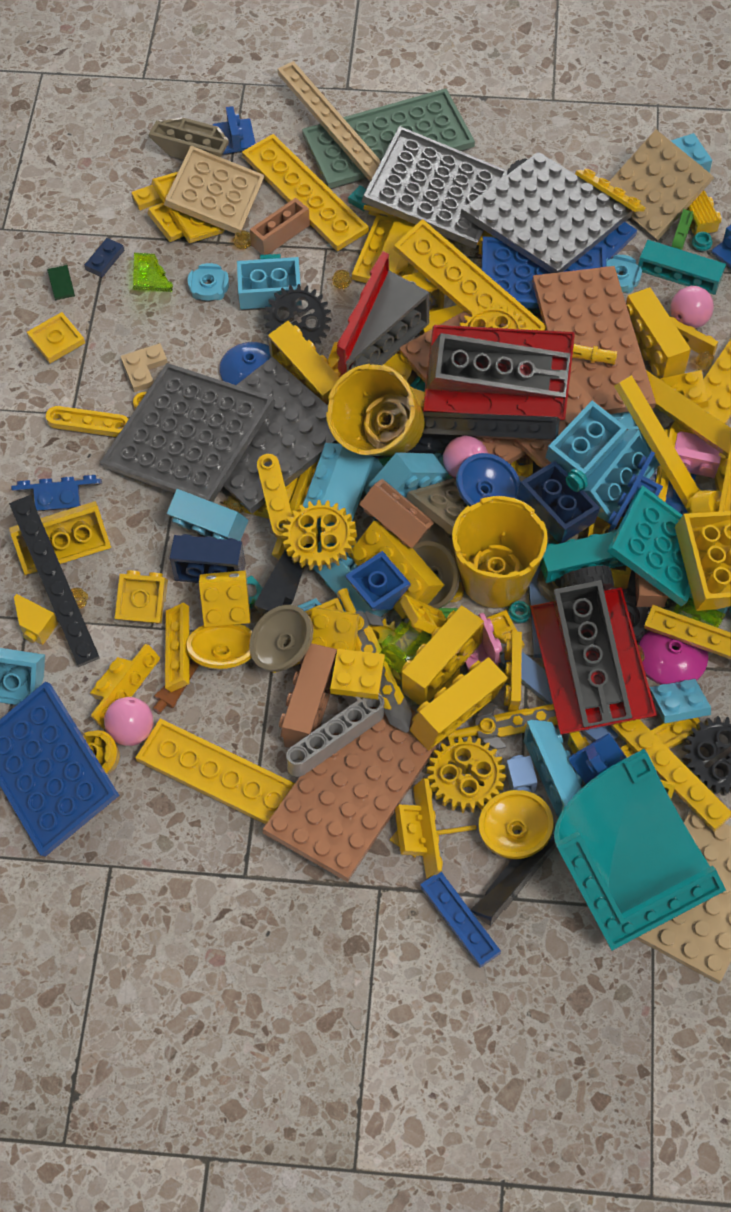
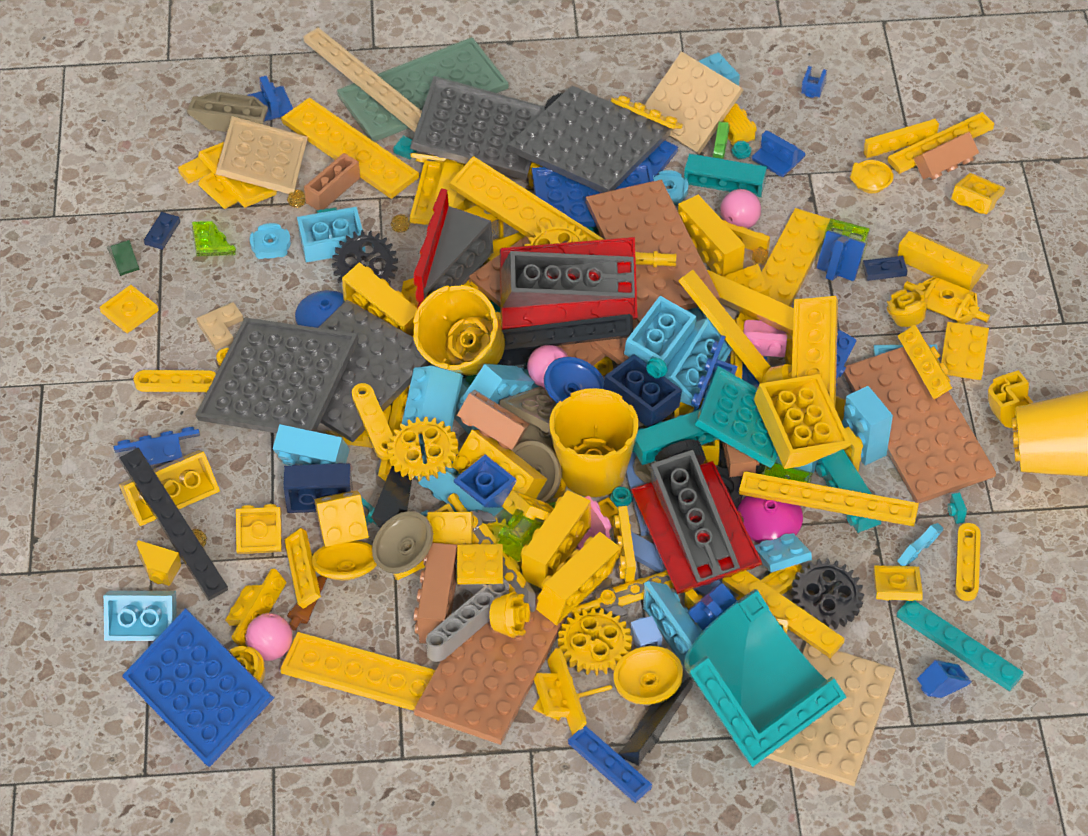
camera: 10 degrees left, 10 degrees down
(378, 736) = (509, 614): none -> yellow cone

